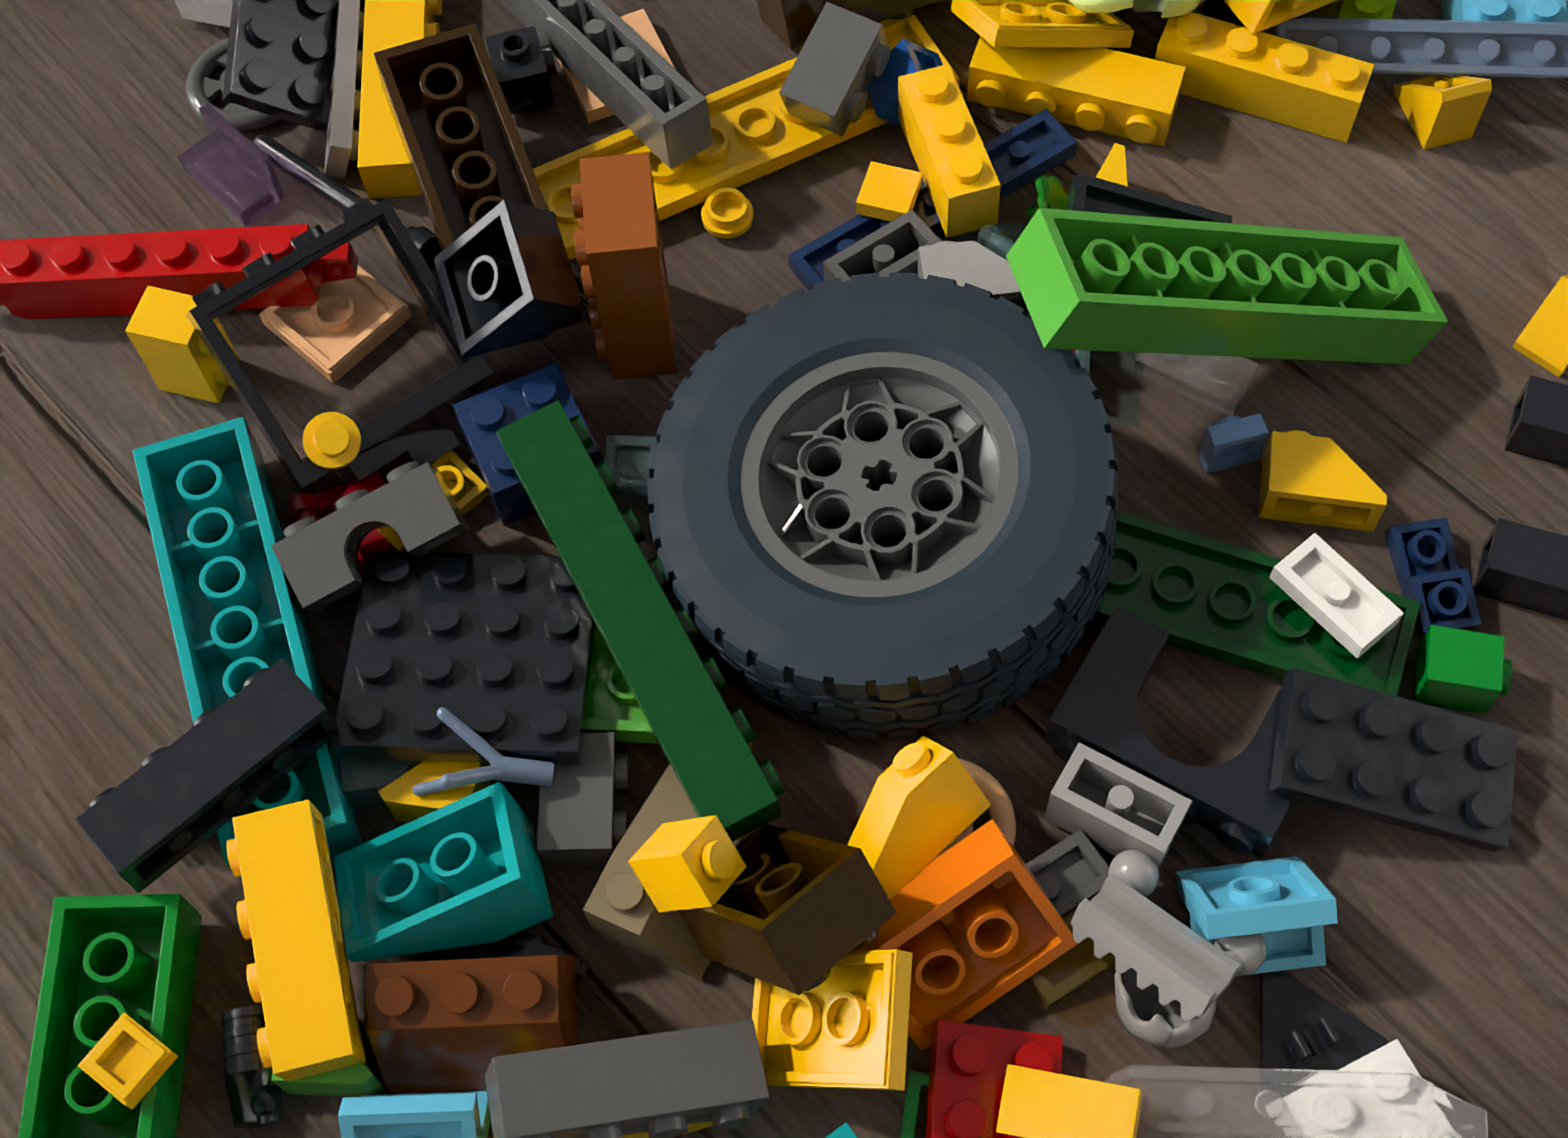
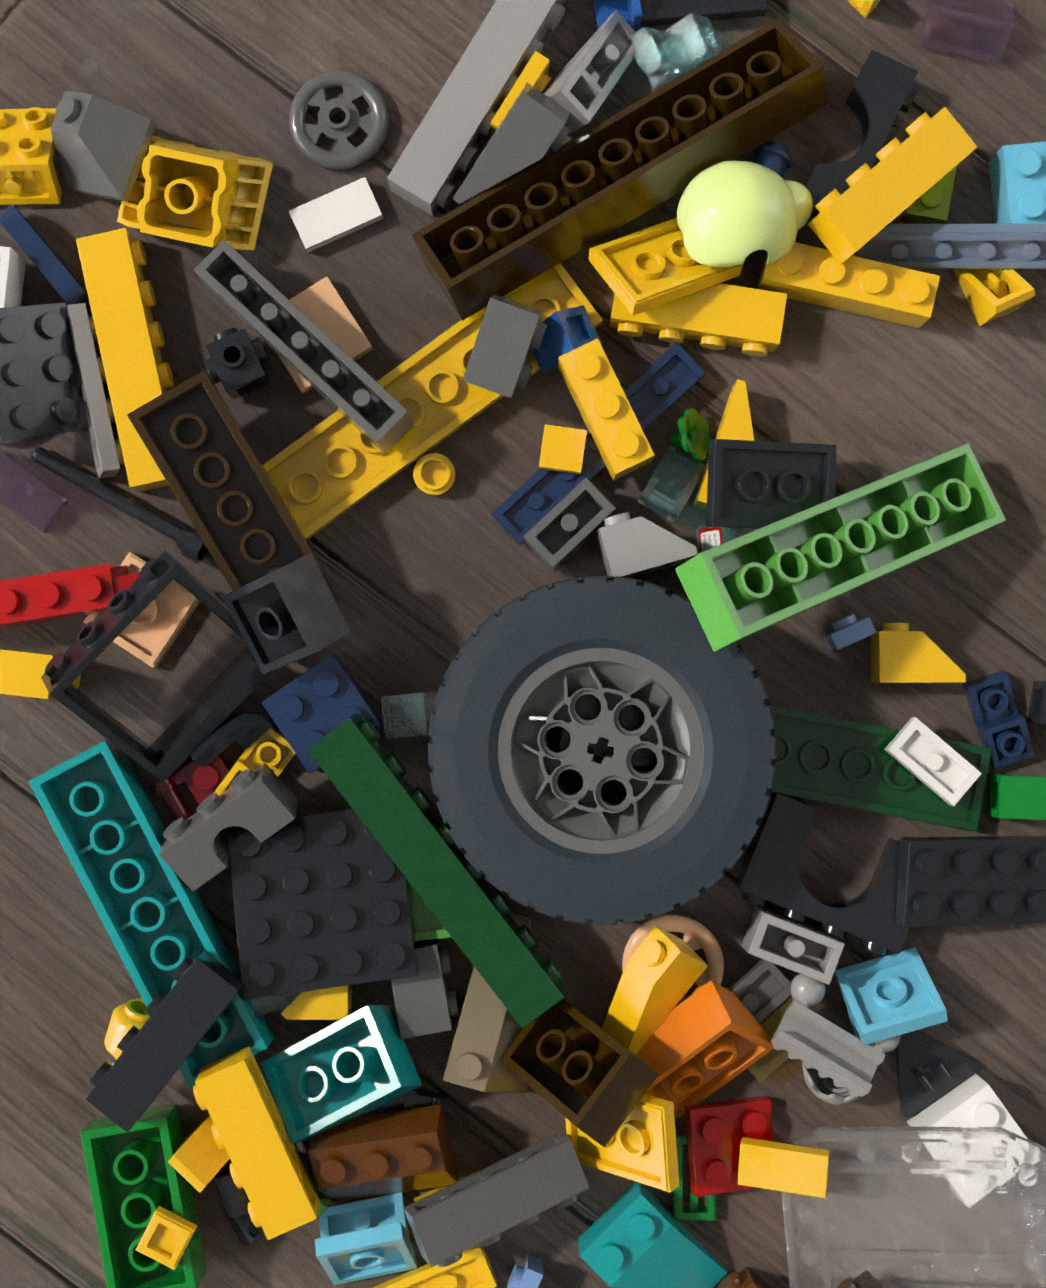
camera: 10 degrees left, 25 degrees up
(215, 960) = (198, 1156): none -> yellow slope
(331, 440) = (178, 751): yellow plate -> none
(500, 769) = (361, 997): sand blue plant -> none
(624, 265) = (373, 580): dark orange brick -> none
(687, 864) = (510, 1050): yellow brick -> none

